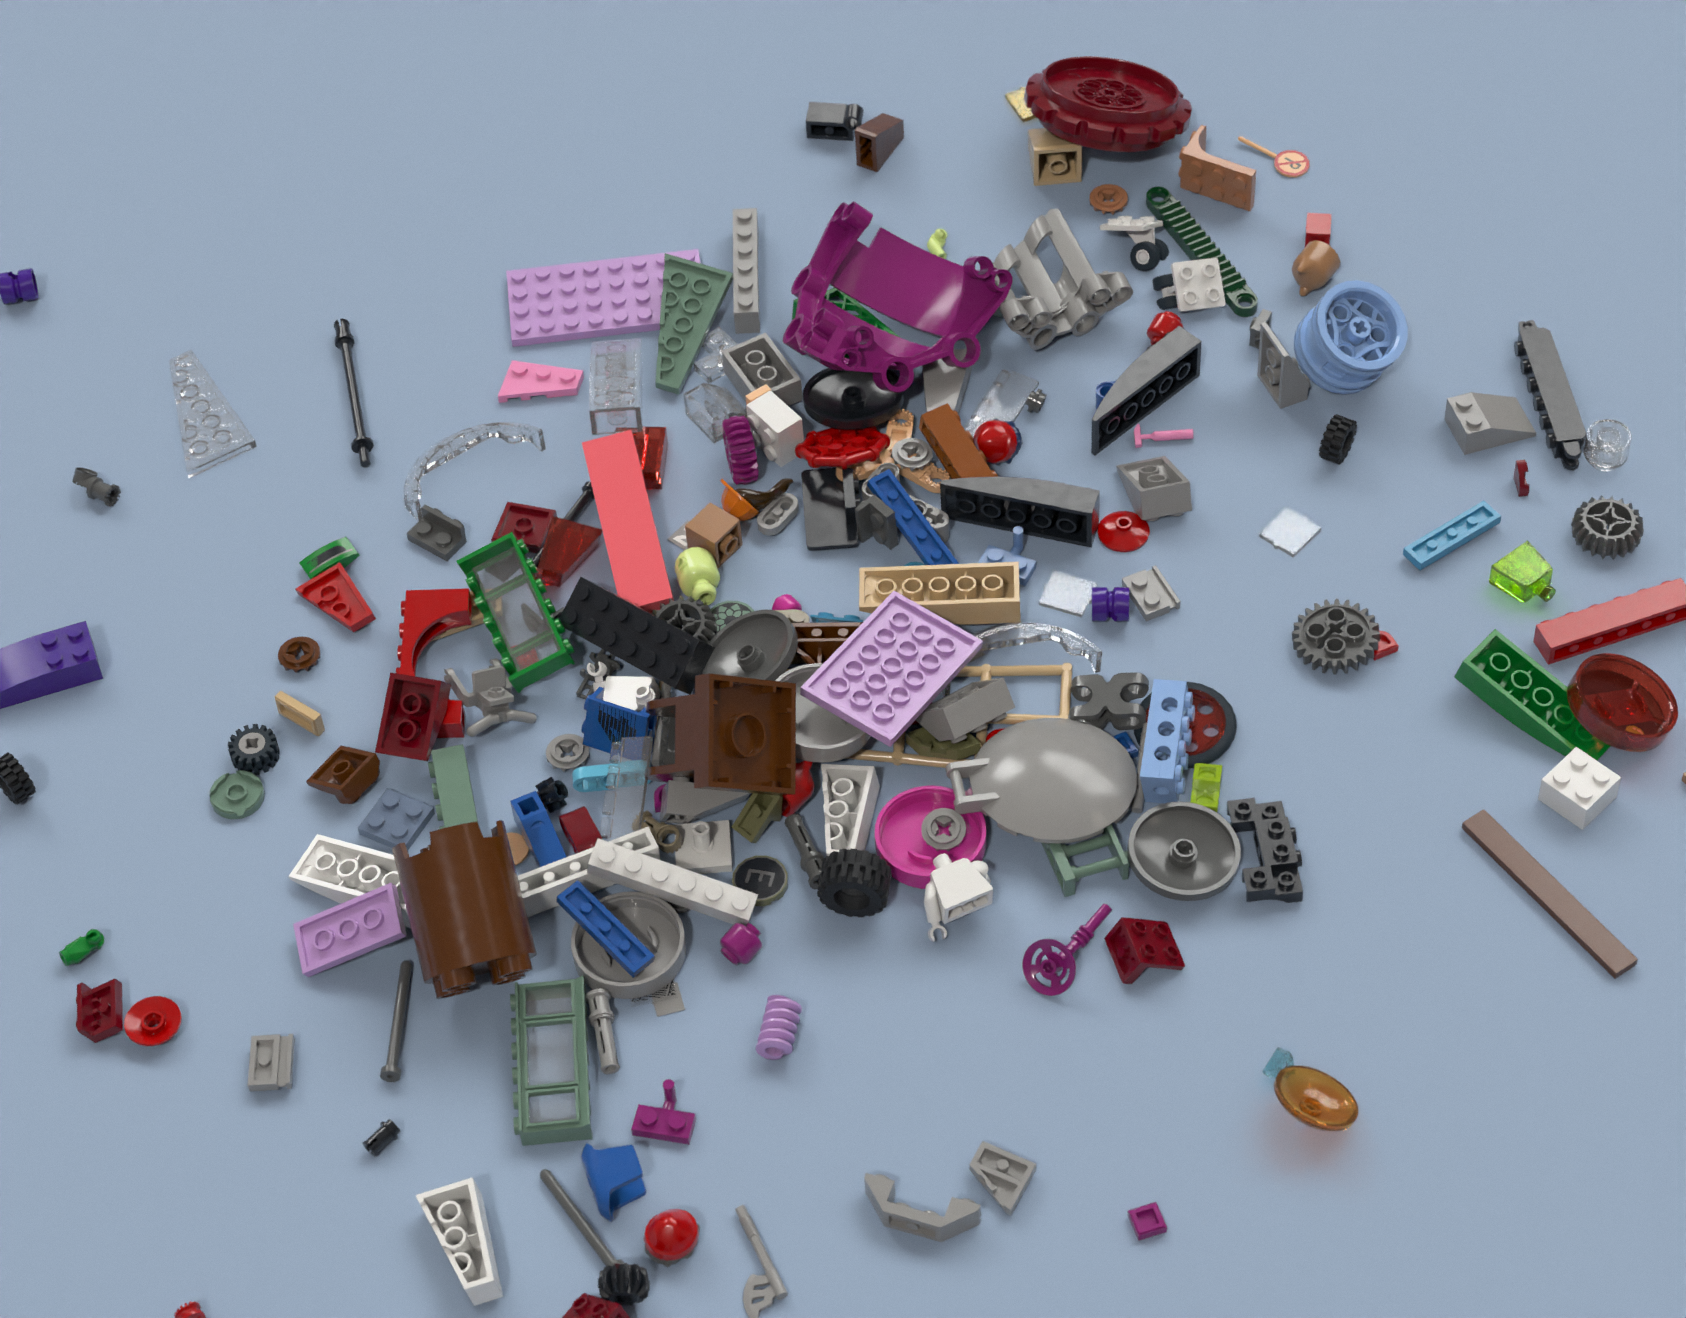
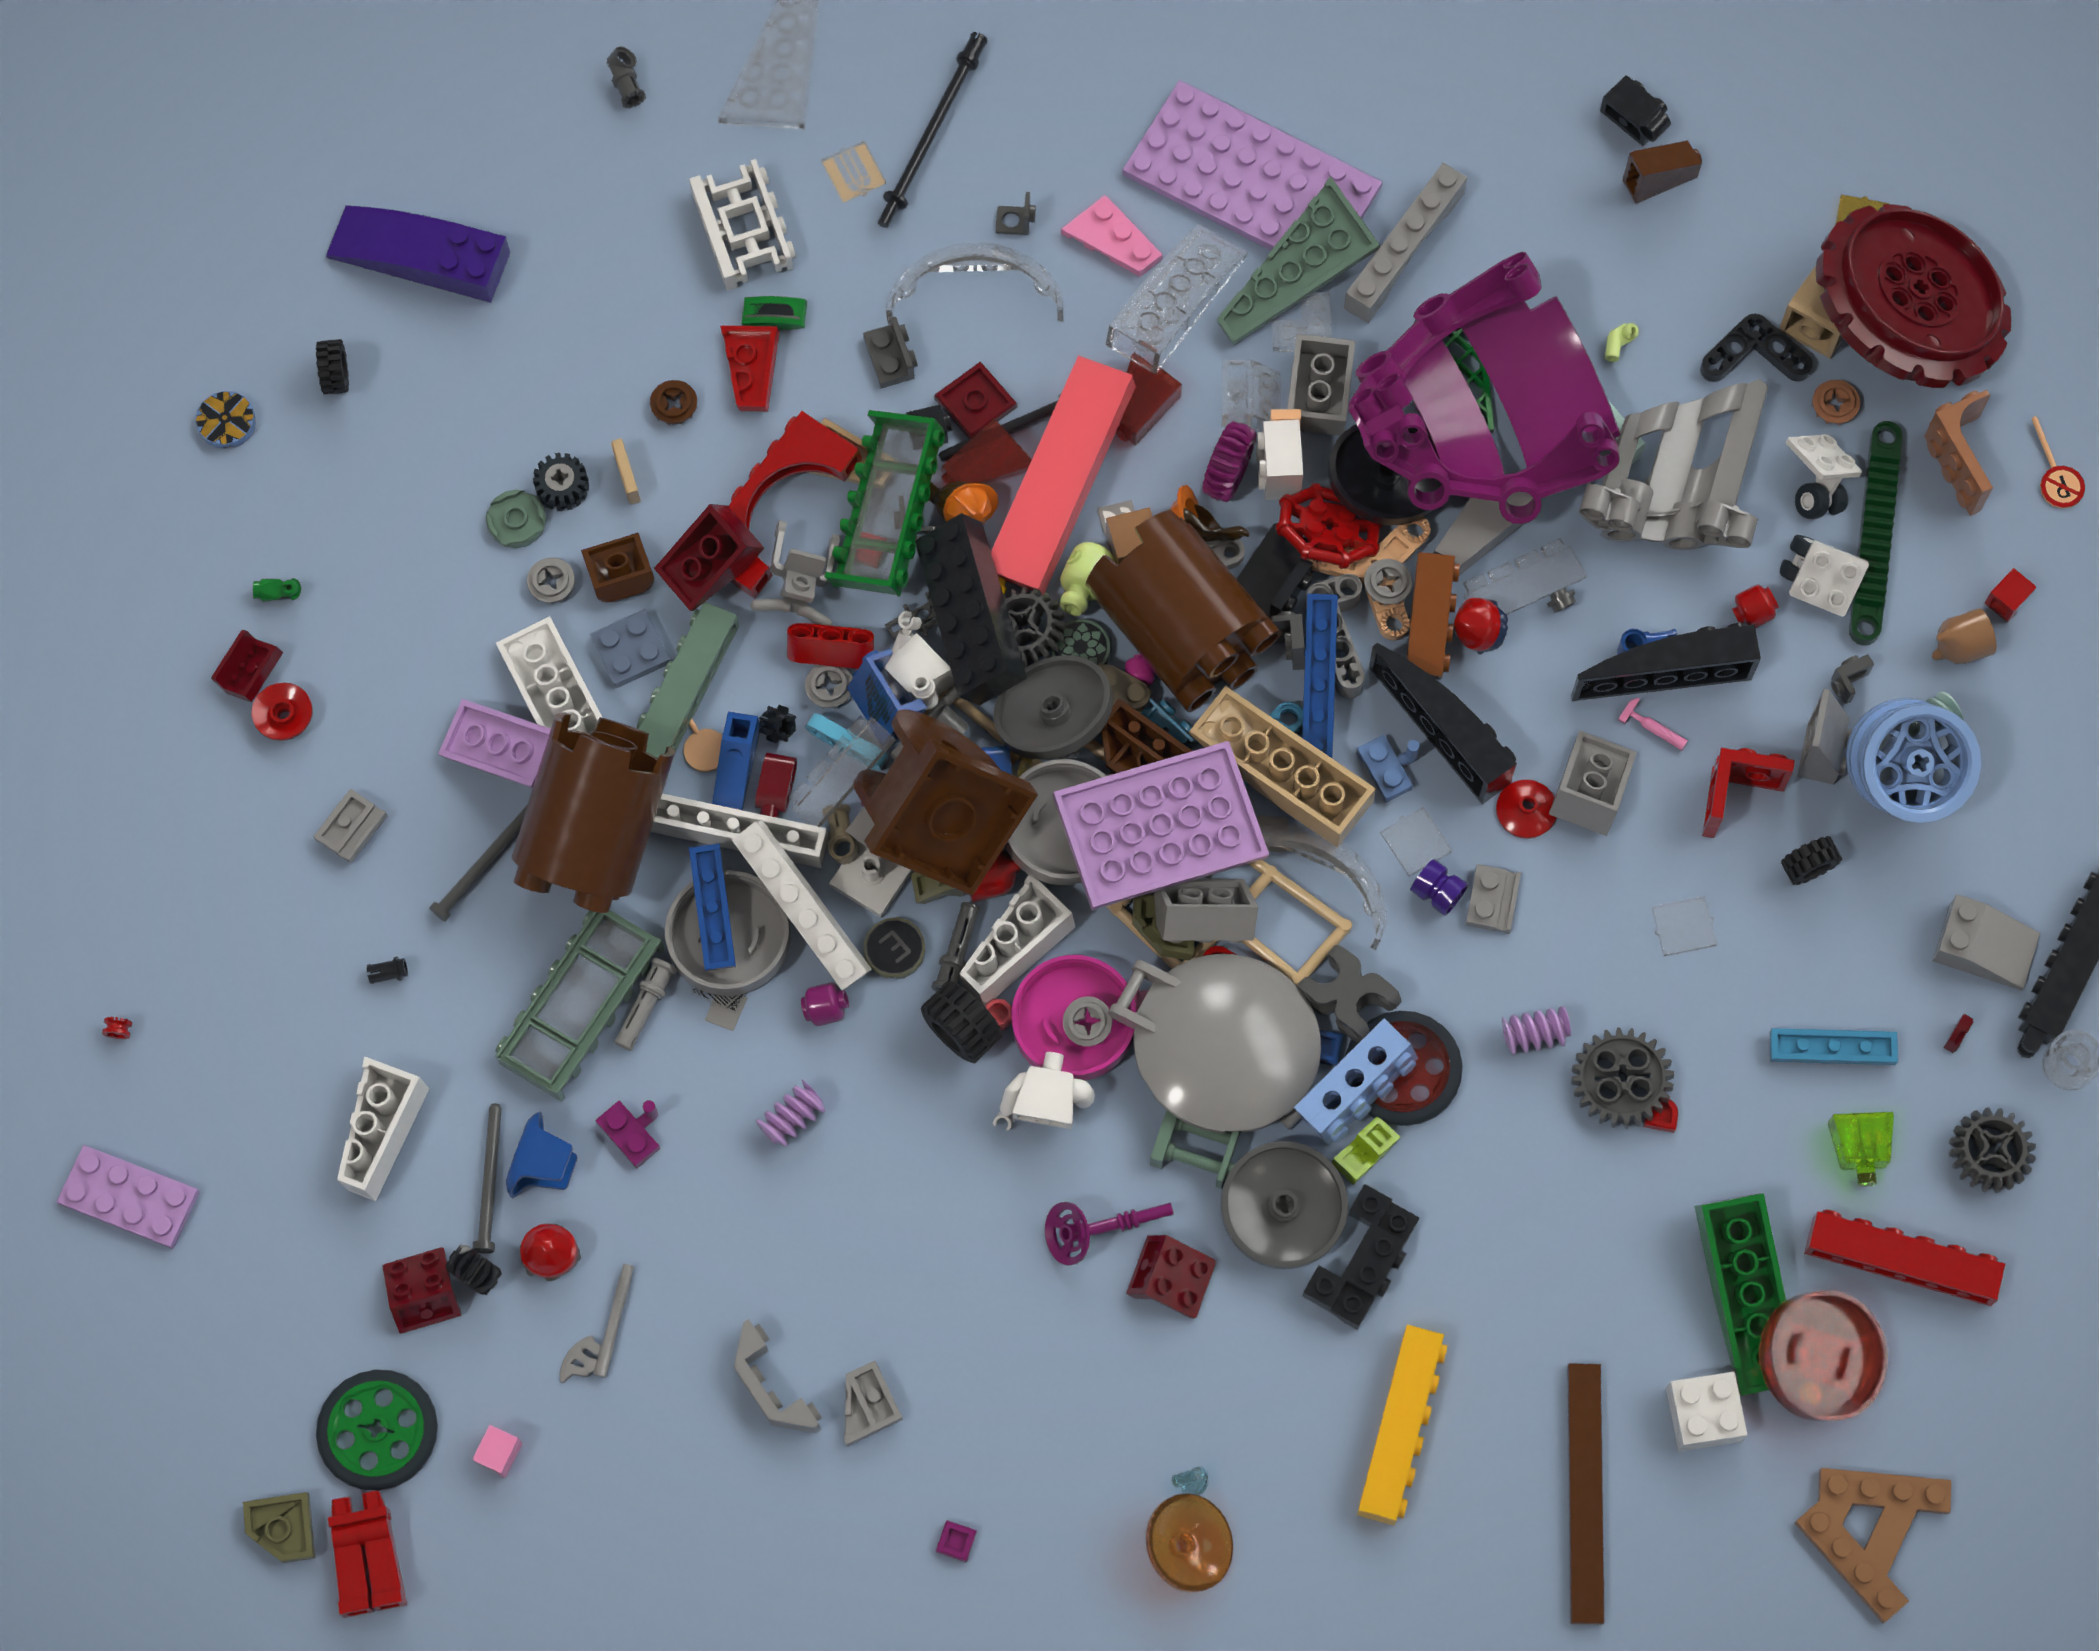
camera: 35 degrees right, 20 degrees up
(251, 537) = (720, 230): none -> white fence
(297, 805) = (557, 569): none -> light grey gear
(315, 449) = (853, 171): none -> clear piece
(465, 405) = (1025, 214): none -> dark grey bracket
(548, 724) = (828, 645): none -> red beam
(565, 579) = (959, 497): none -> orange piece
(790, 540) = (1183, 610): none -> reddish brown brick
(1024, 198) = (1751, 341): none -> black beam
(1247, 416) = (1742, 768): none -> red bracket
(1254, 643) = (1536, 1029): none -> lavender piece
(1389, 933) = (1401, 1424): none -> yellow brick

